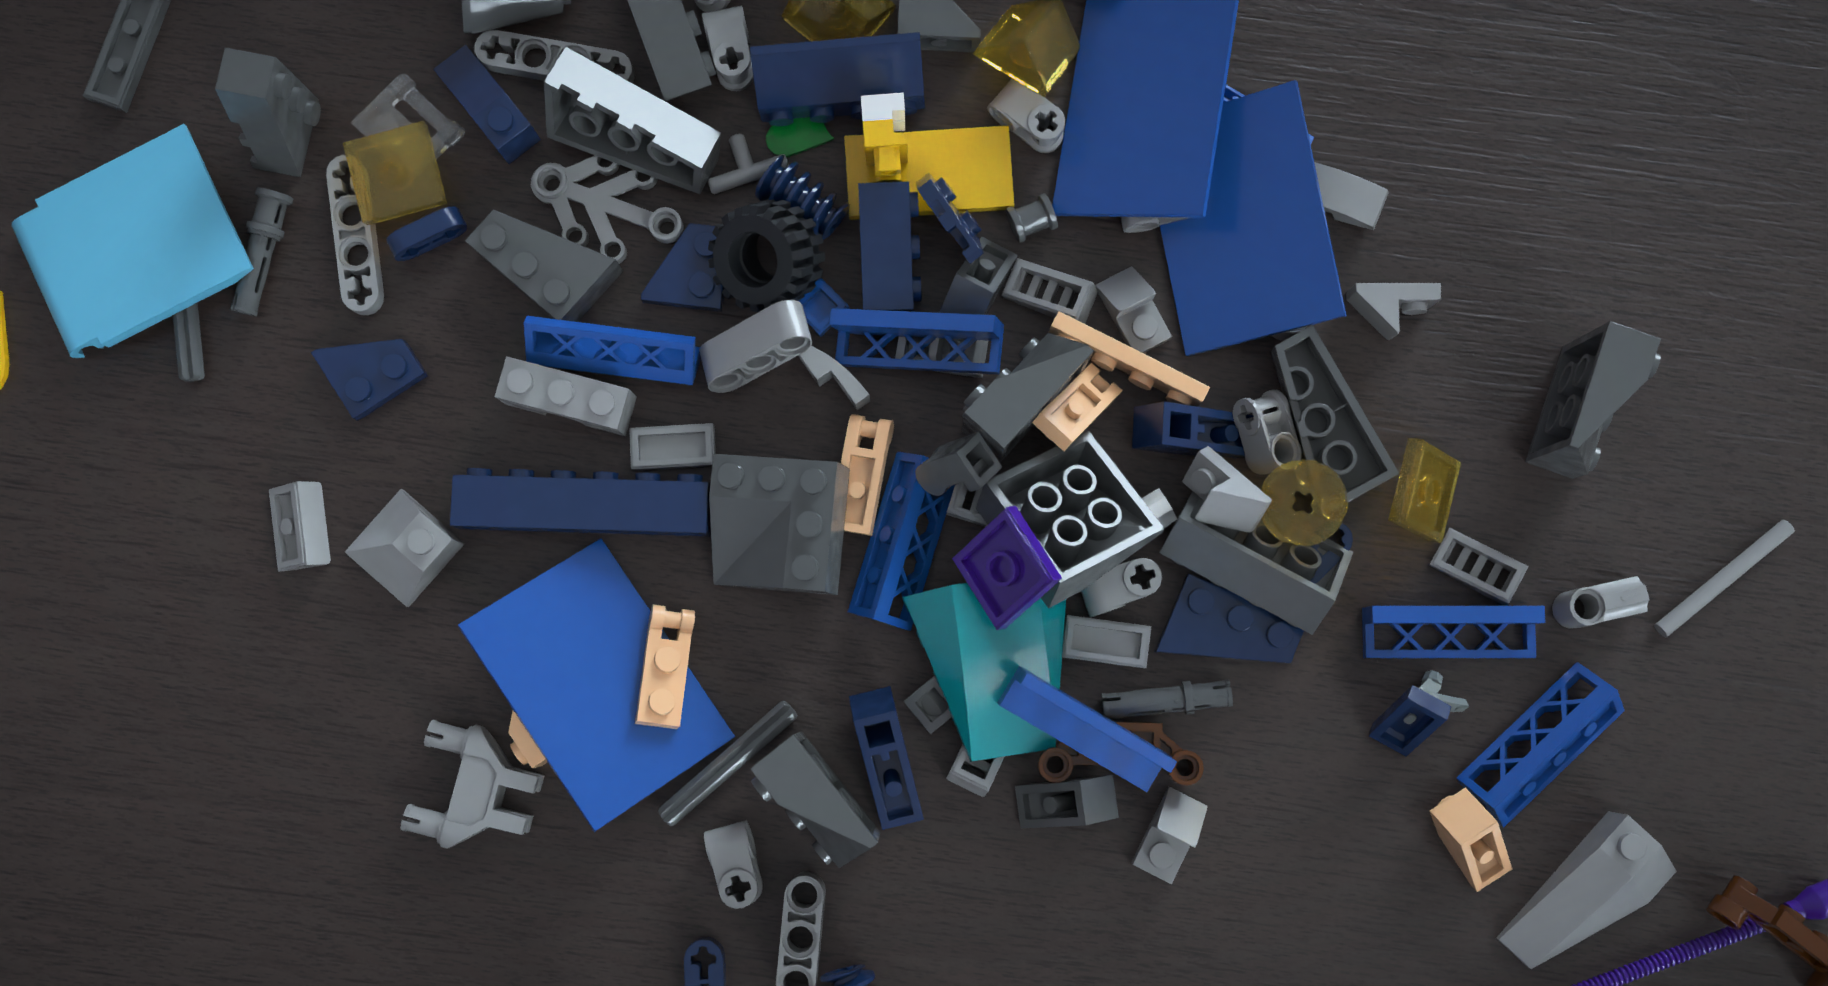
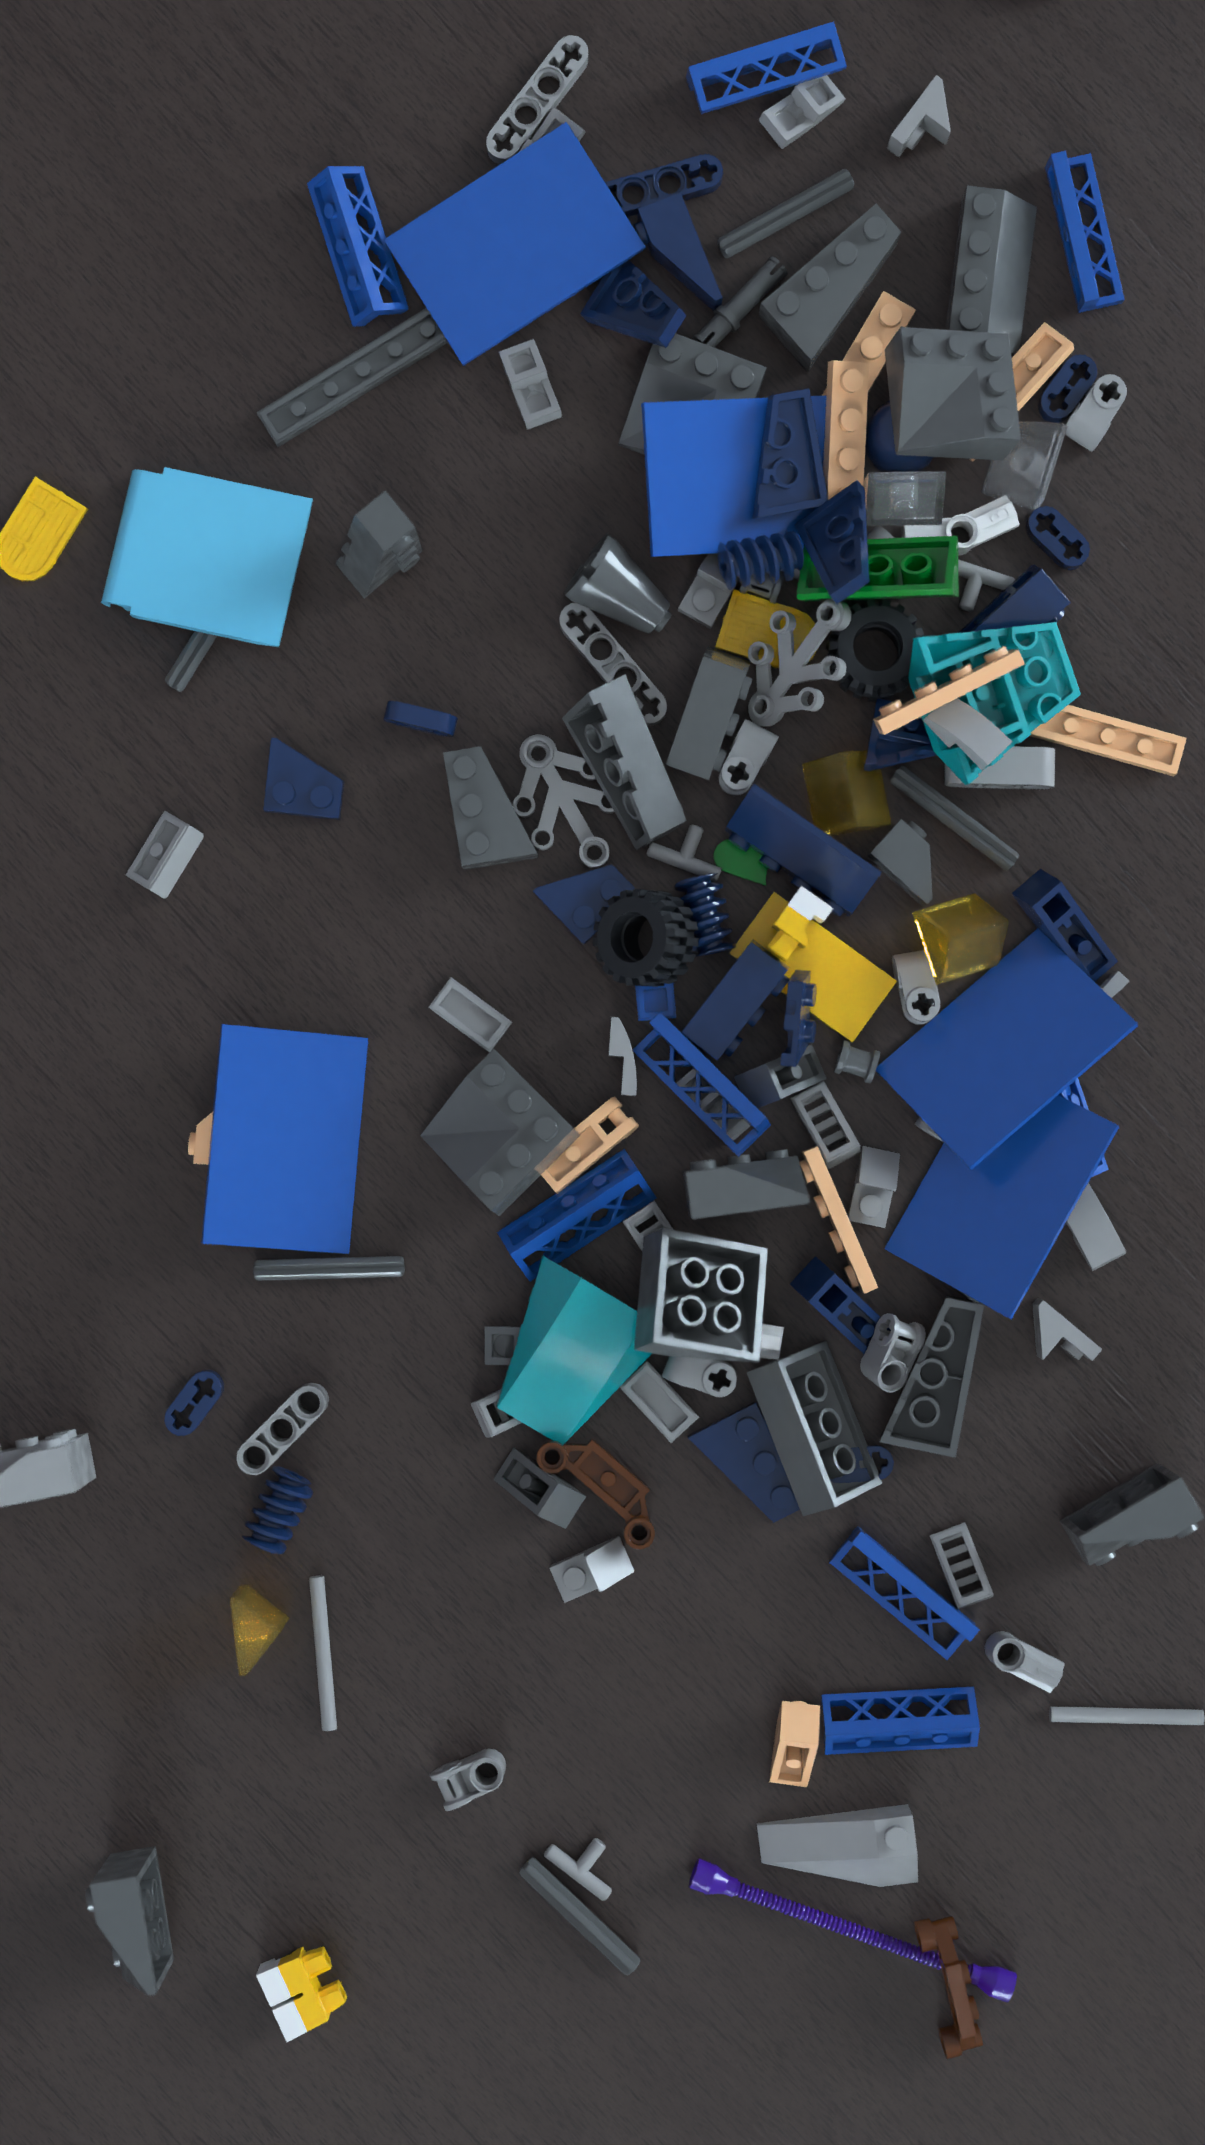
camera: 35 degrees right, 5 degrees up
(264, 233) = (306, 622): dark grey pin -> none
(348, 236) = (373, 678): light grey beam -> none
(383, 116) = (456, 628): clear plate -> none
(394, 173) = (432, 658): clear yellow plate -> none
(404, 547) = (226, 931): light grey slope -> none
(477, 789) = (144, 1145): light grey connector -> none
(487, 104) = (538, 655): dark blue slope -> none
(566, 395) = (424, 919): light grey arch -> none
(580, 504) = (374, 1006): dark blue brick -> none
(611, 350) = (481, 914): blue fence -> none
(664, 668) = (339, 1167): light nougat plate -> none
(733, 854) = (282, 1335): light grey piece -> none
(755, 346) = (584, 995): light grey beam -> none
(815, 799) = (370, 1343): dark grey slope -> none
(886, 757) = (440, 1355): dark blue slope -> none
(957, 462) = (656, 1198): dark grey leg -> none
(1006, 568) = (627, 1299): dark purple tile -> none
(1076, 407) = (773, 1226): light nougat plate -> none
(1084, 729) = (591, 1450): blue fence -> none
(1178, 698) = (668, 1477): dark grey pin -> none
(1227, 494) = (825, 1374): light grey slope -> none
(1328, 507) = (889, 1408): clear yellow plate -> none
(1415, 715) = (829, 1629): dark blue piece -> none
(1424, 490) = (966, 1483): clear yellow plate -> none

